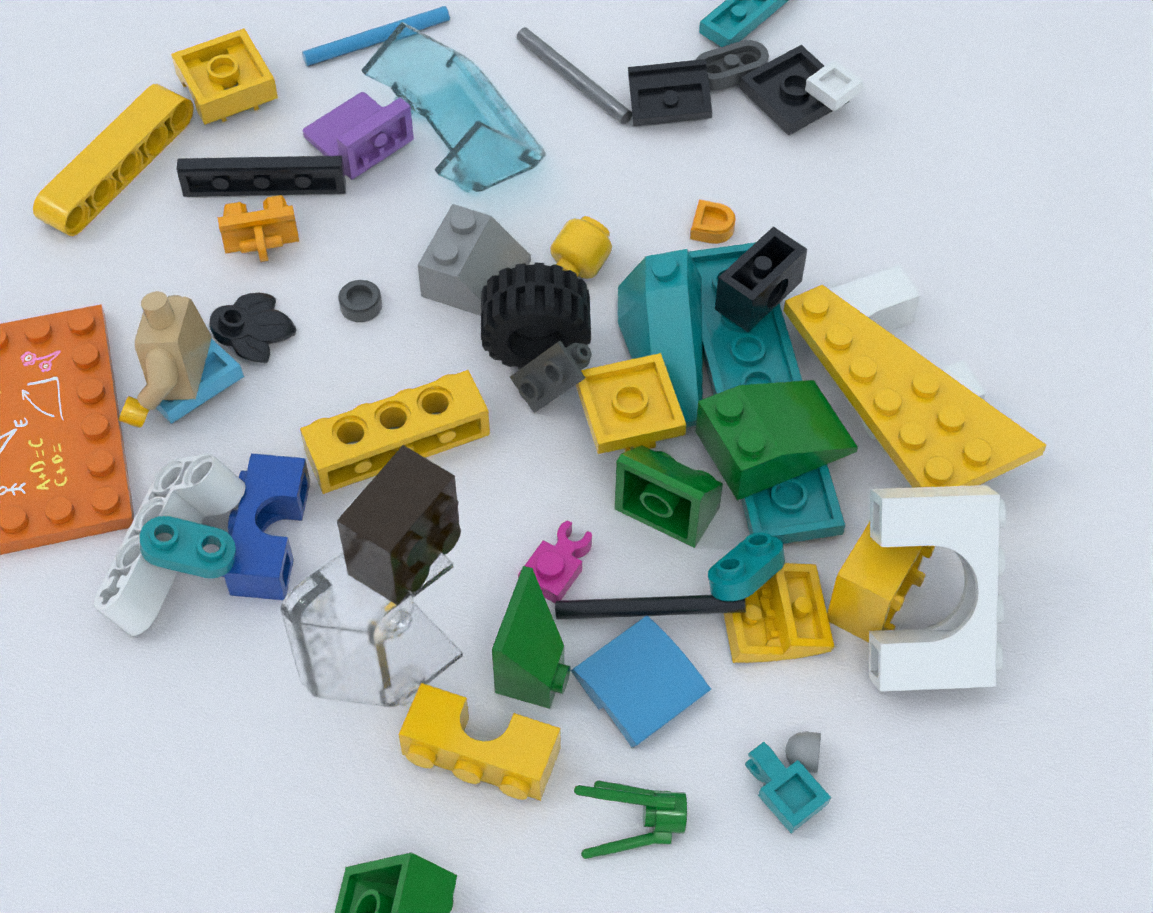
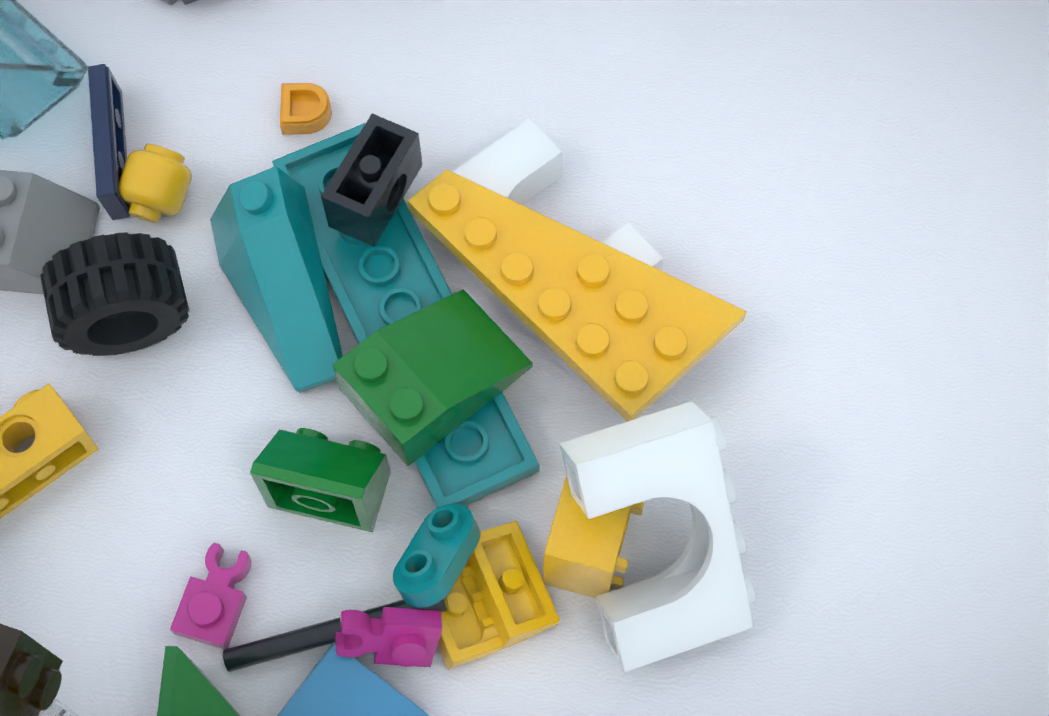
camera: 15 degrees left, 10 degrees up
(551, 374) = (152, 363): dark grey hinge -> none
(552, 207) = (108, 139): none -> dark blue tile
(630, 404) = (253, 380): yellow bracket -> none
(699, 622) = (396, 638): none -> dark pink plate

